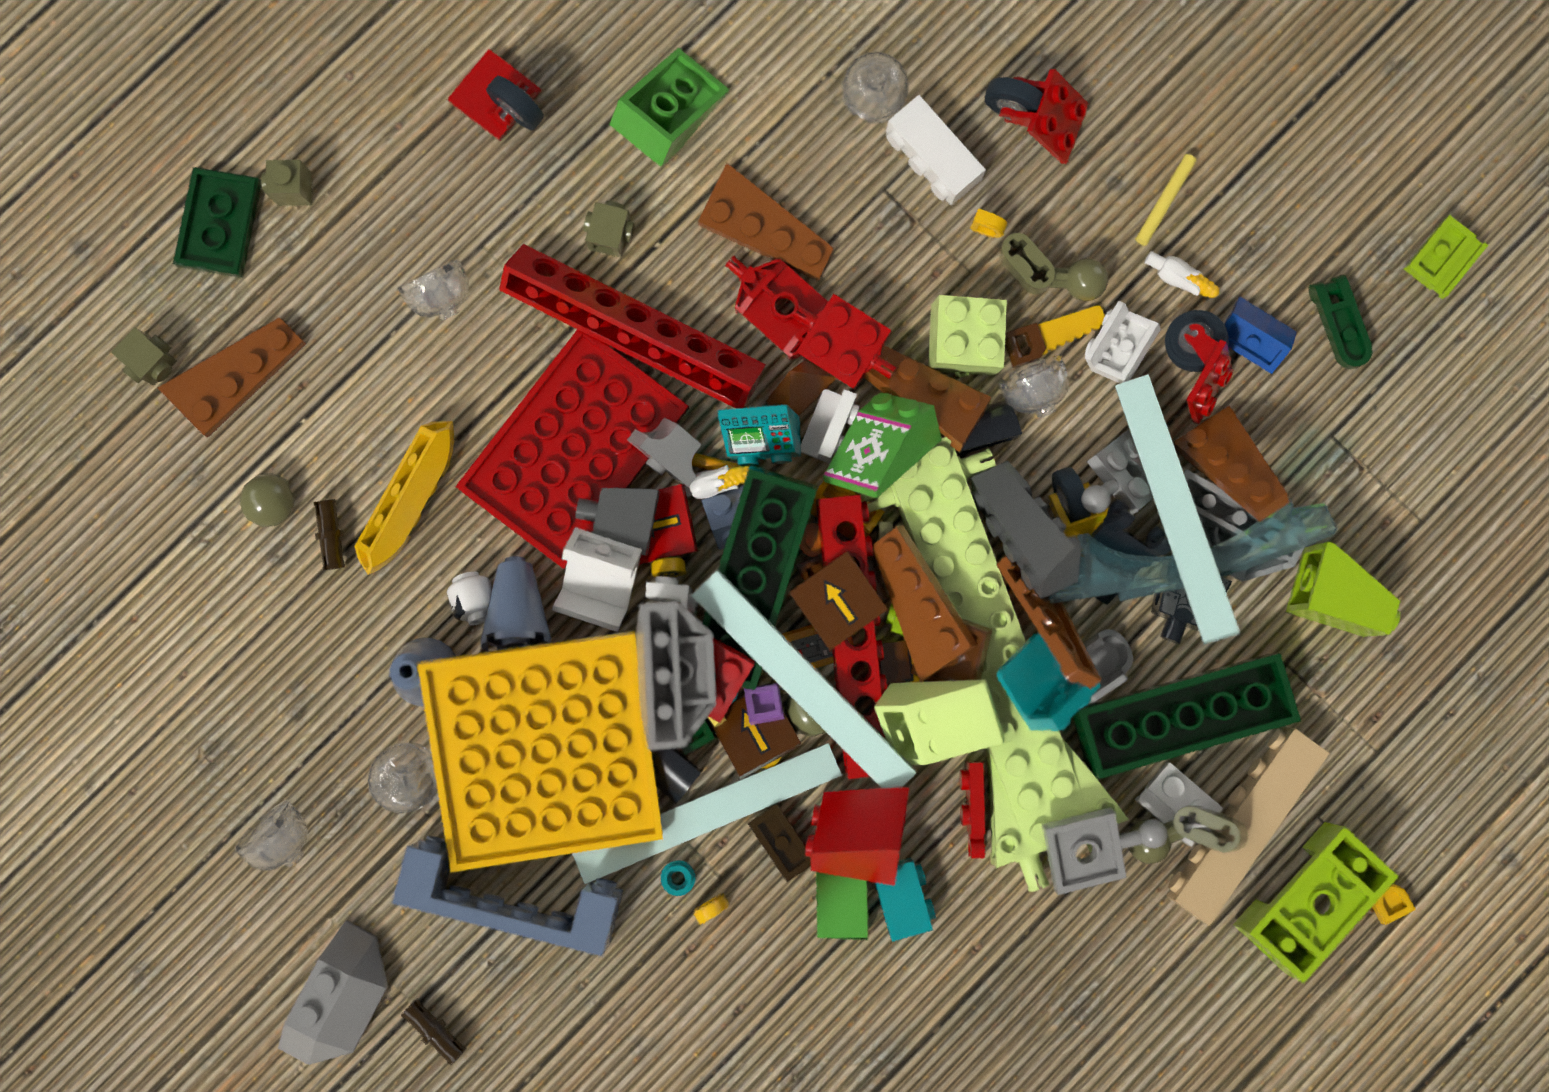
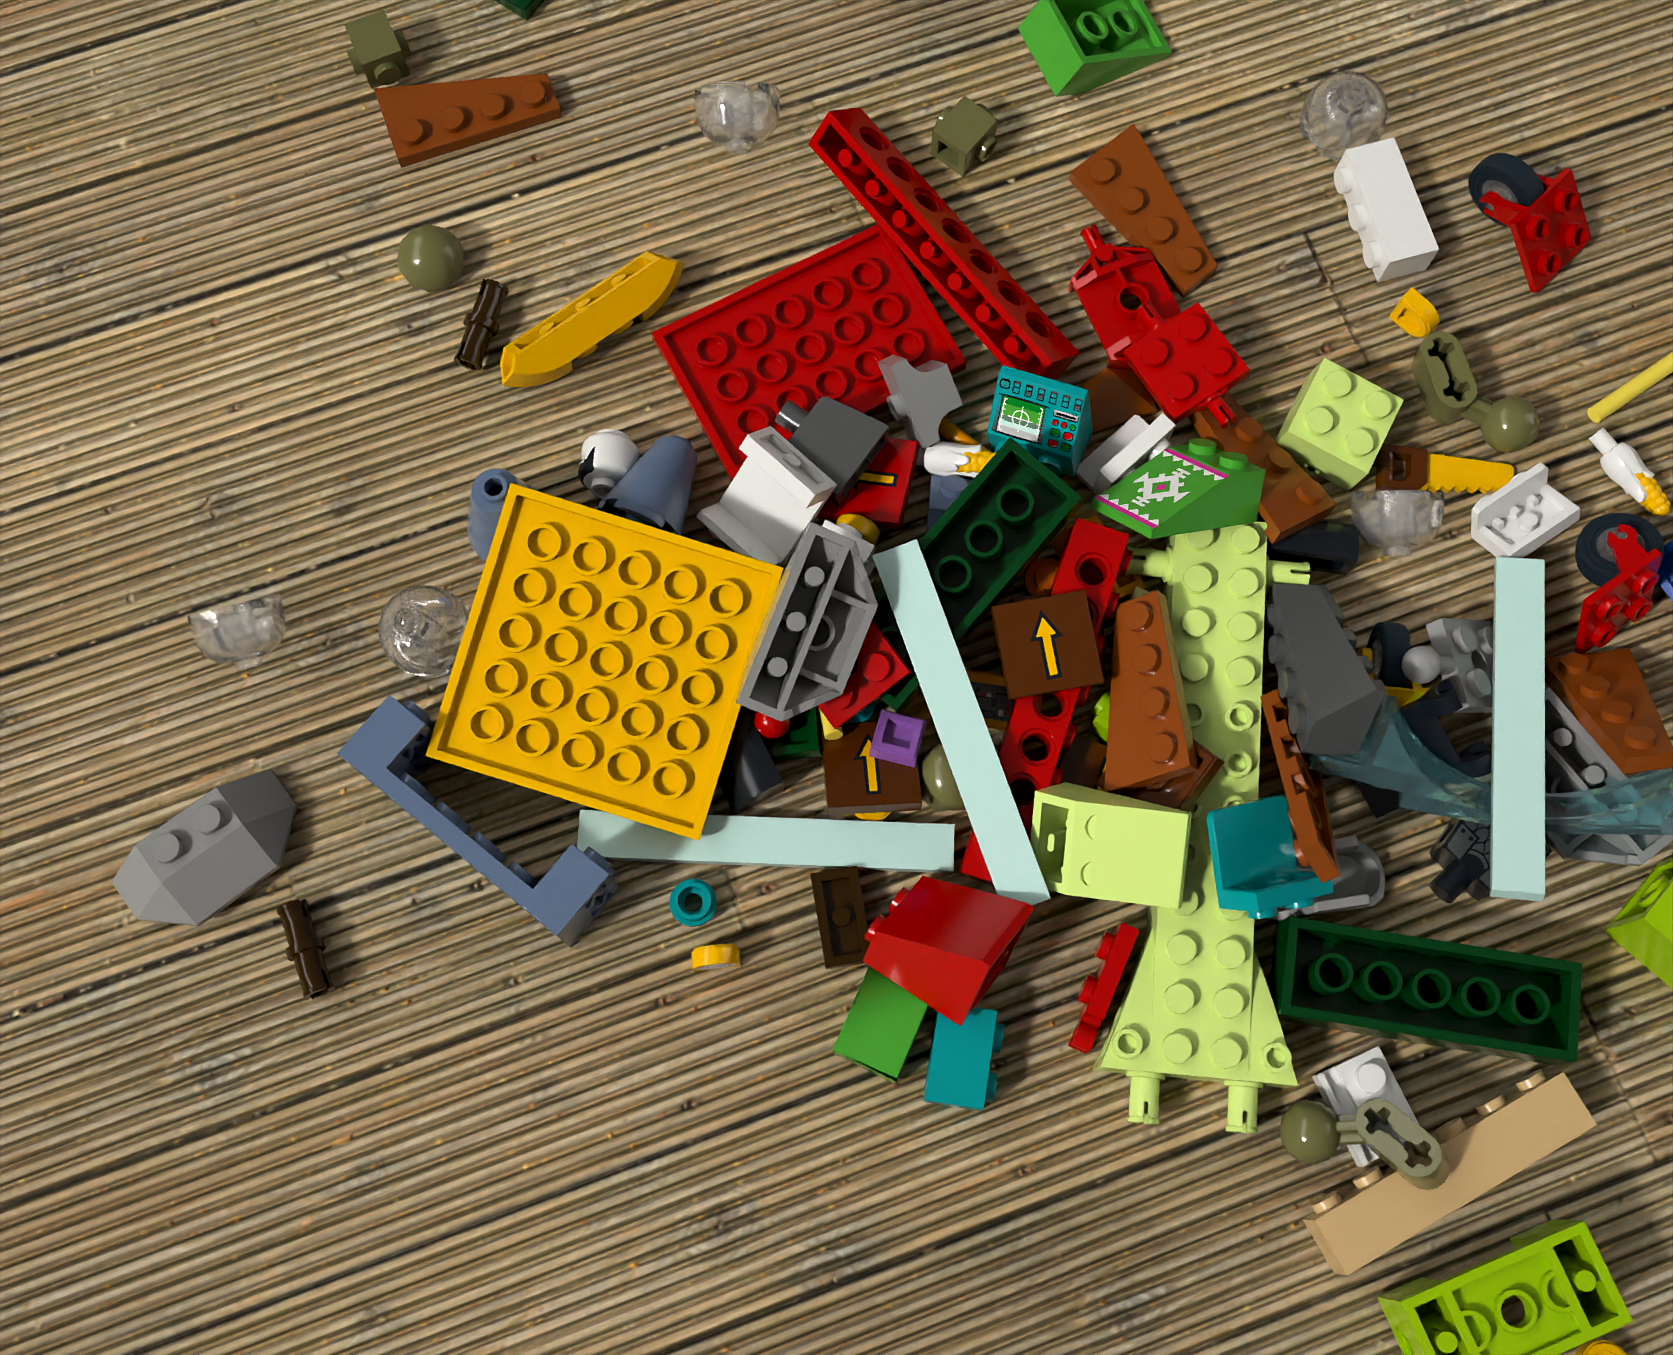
camera: 25 degrees right, 10 degrees down
(1106, 859) = (1249, 1118): light grey plate -> none

